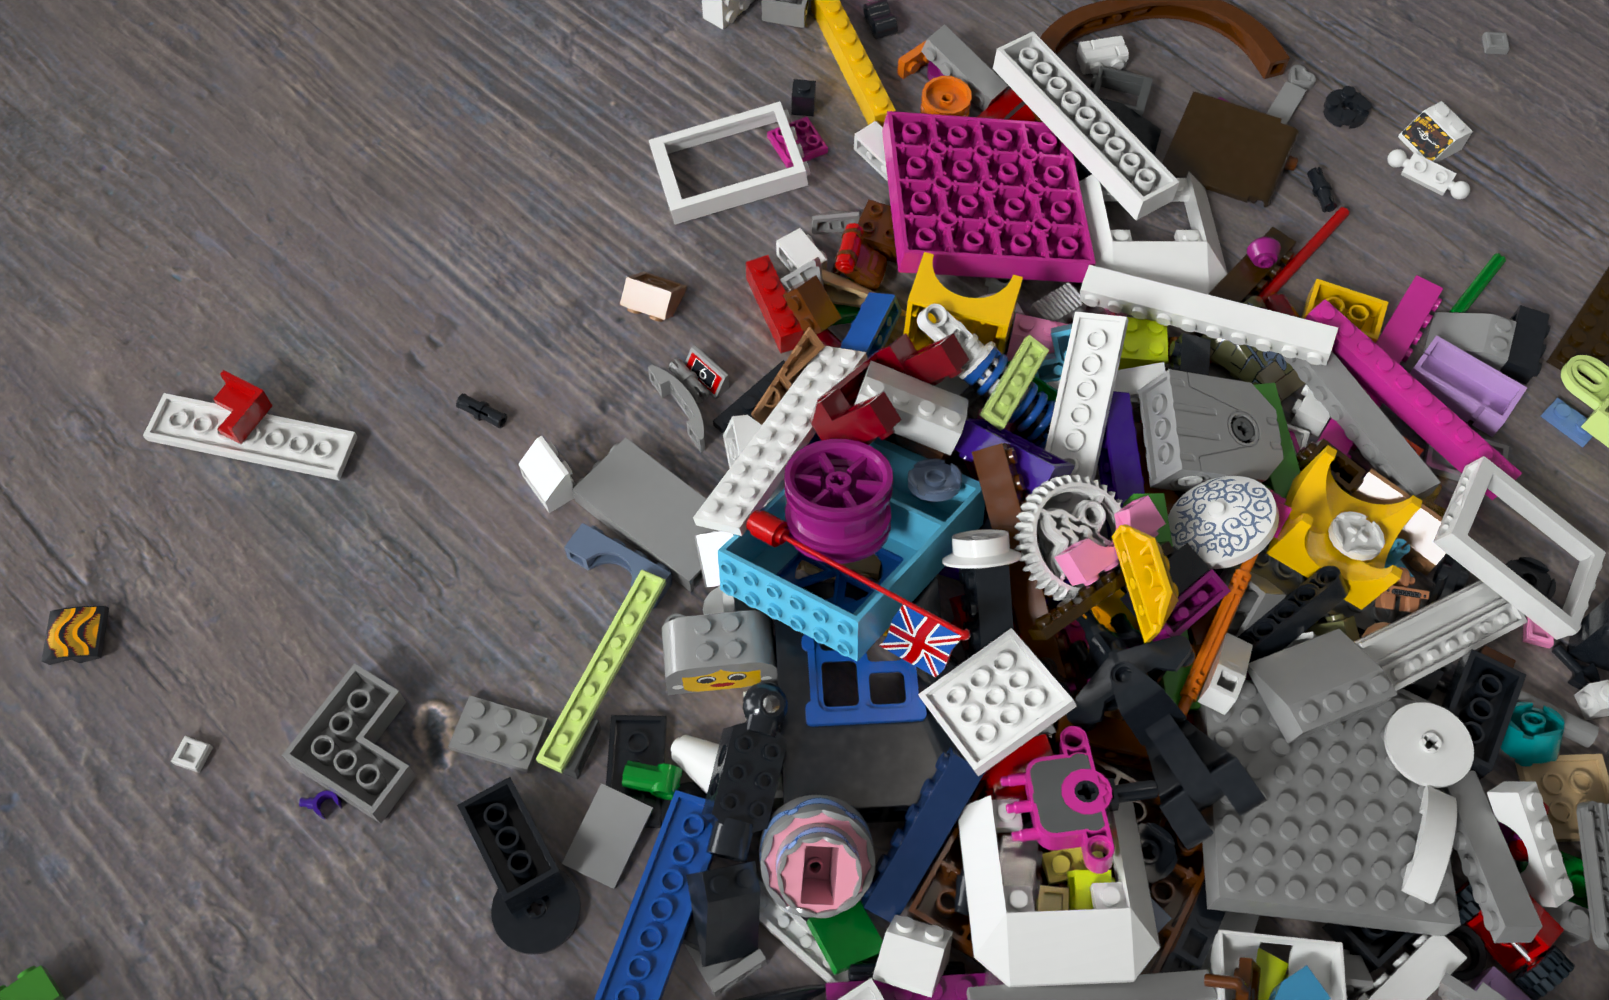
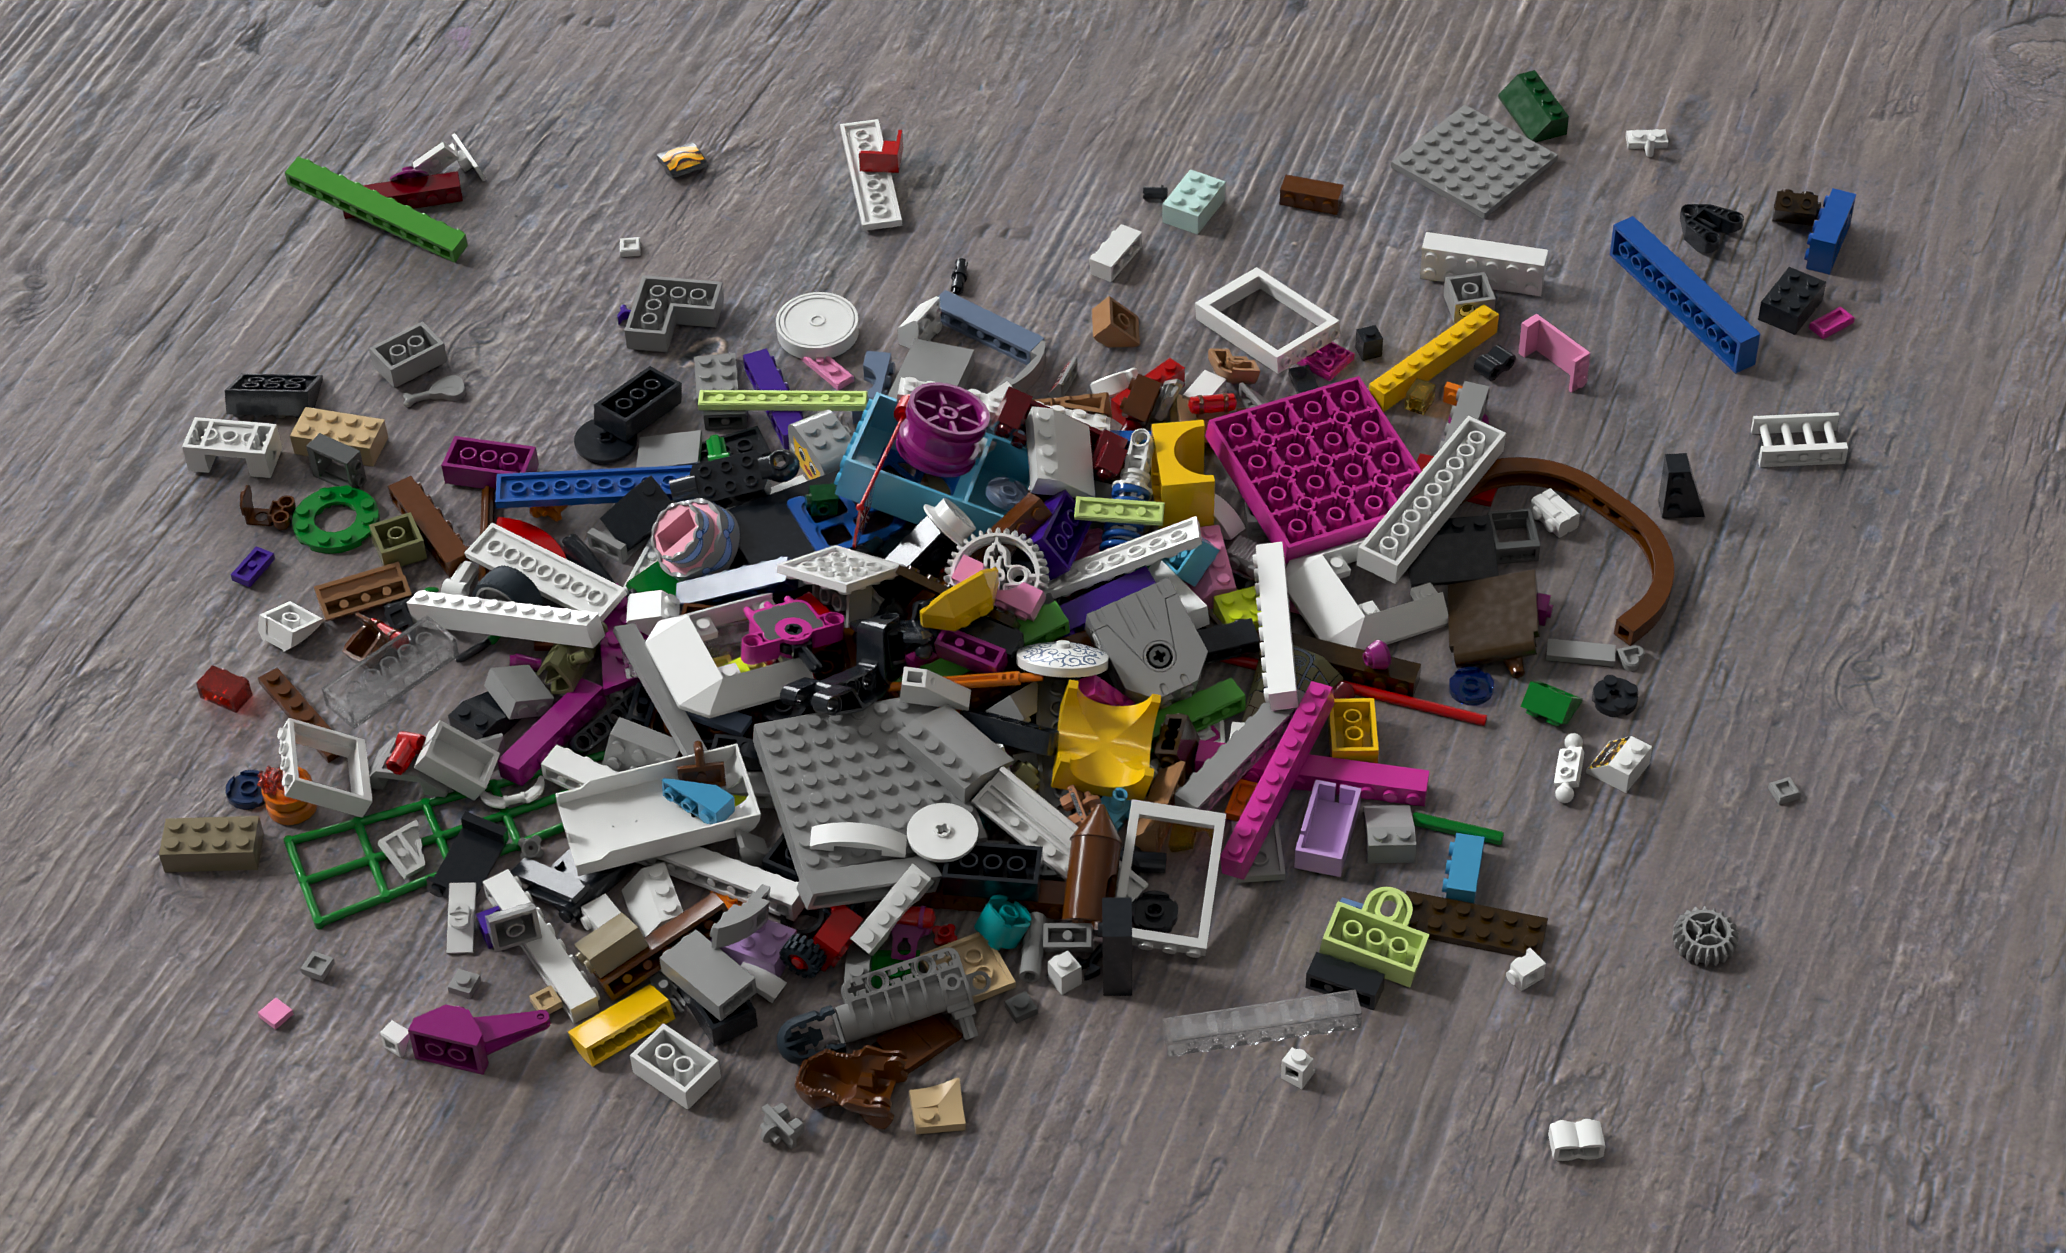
camera: 70 degrees right, 15 degrees down
(470, 179) = (1155, 192): none -> black pin
(480, 586) = (817, 325): none -> white brick
(508, 155) = (1193, 201): none -> light aqua brick
(540, 252) = (1115, 253): none -> white brick
(548, 602) = (830, 371): none -> bright pink tile
(559, 60) = (1311, 194): none -> reddish brown brick
(559, 676) = (765, 376): none -> dark purple brick
(589, 411) = (987, 327): none -> sand blue brick
(688, 379) = (1050, 371): light grey pin -> none
(757, 326) = (1114, 383): none -> white animal
(784, 216) = (1233, 368): none -> medium nougat brick
(827, 171) = (1302, 379): none -> black tile
(837, 681) = (822, 499): none -> dark green brick
(899, 89) = (1420, 396): none -> clear yellow brick
(946, 97) = (1419, 426): orange wheel -> none
(1294, 205) = (1471, 686): none -> clear blue tile
(1321, 189) = (1499, 698): black pin -> none
(1345, 153) = (1550, 702): none -> green slope
(1356, 536) = (1102, 750): white tile -> none
(1512, 615) = (1091, 868): none -> reddish brown piece
(1527, 344) = (1406, 867): black brick -> none
(1534, 293) = (1463, 867): none -> dark azure brick
(1559, 675) = (1068, 937): none -> light grey brick

